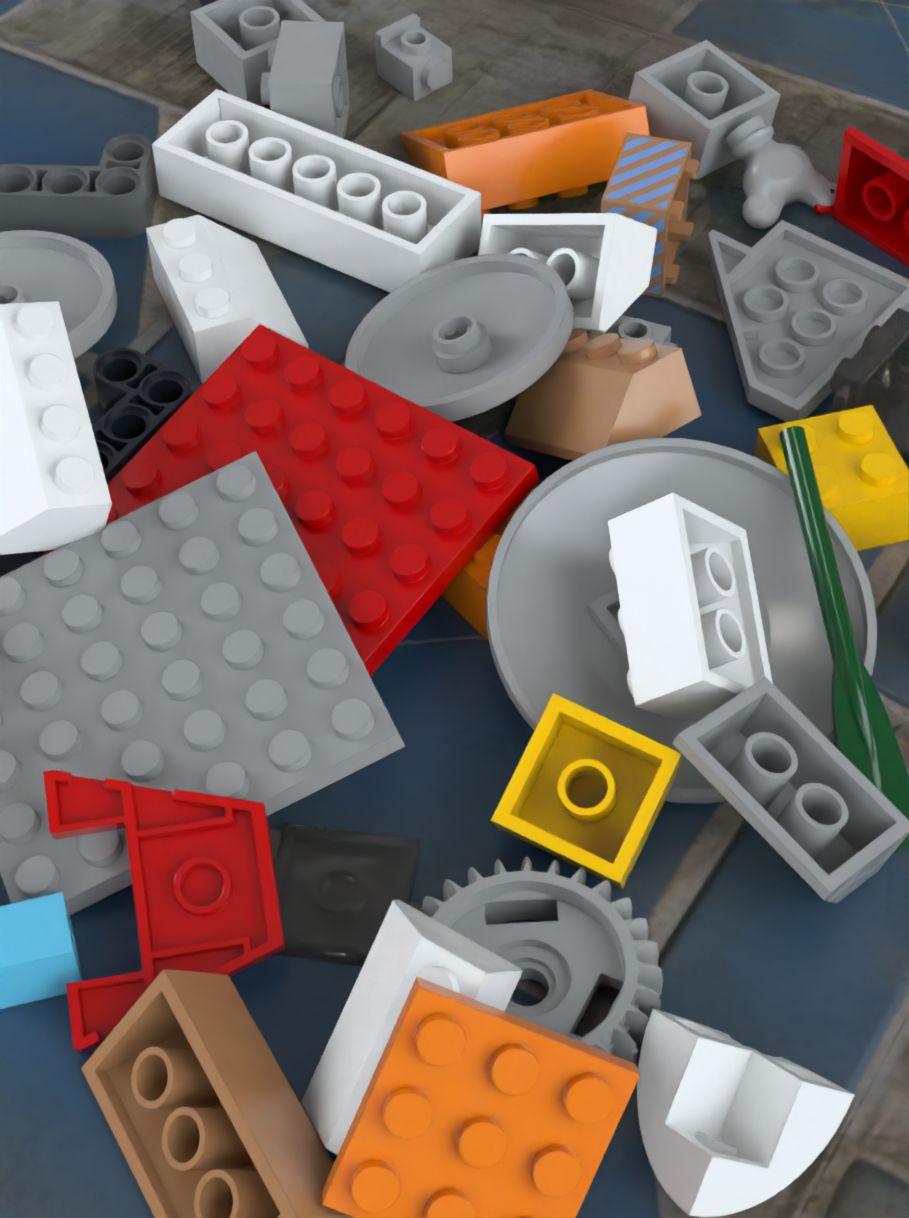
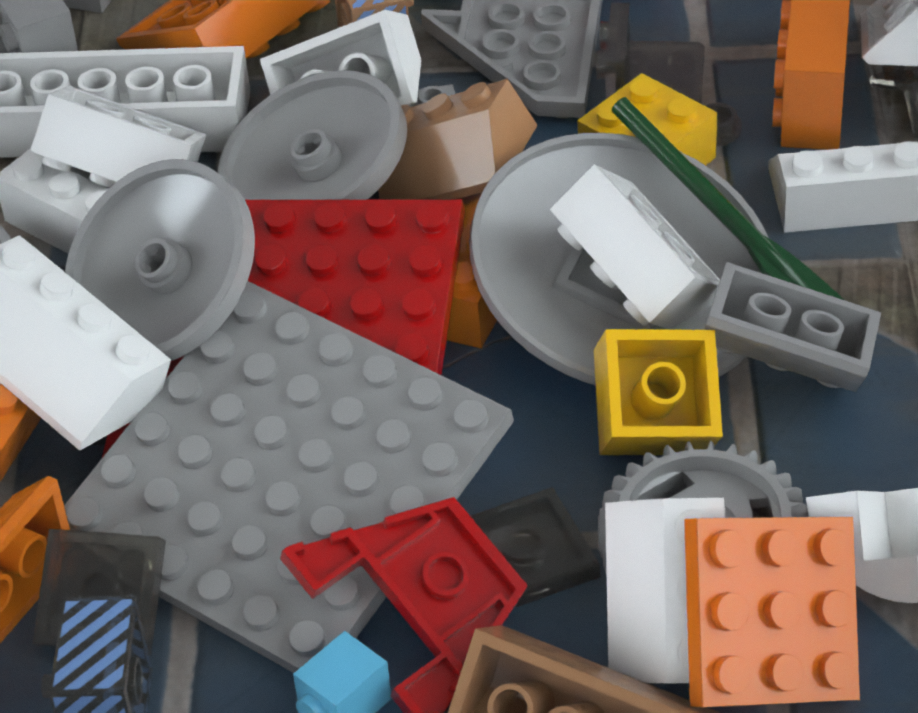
camera: 30 degrees left, 5 degrees down
(185, 390) = (167, 252): none -> light grey dish
(275, 245) = (107, 136): none -> white brick

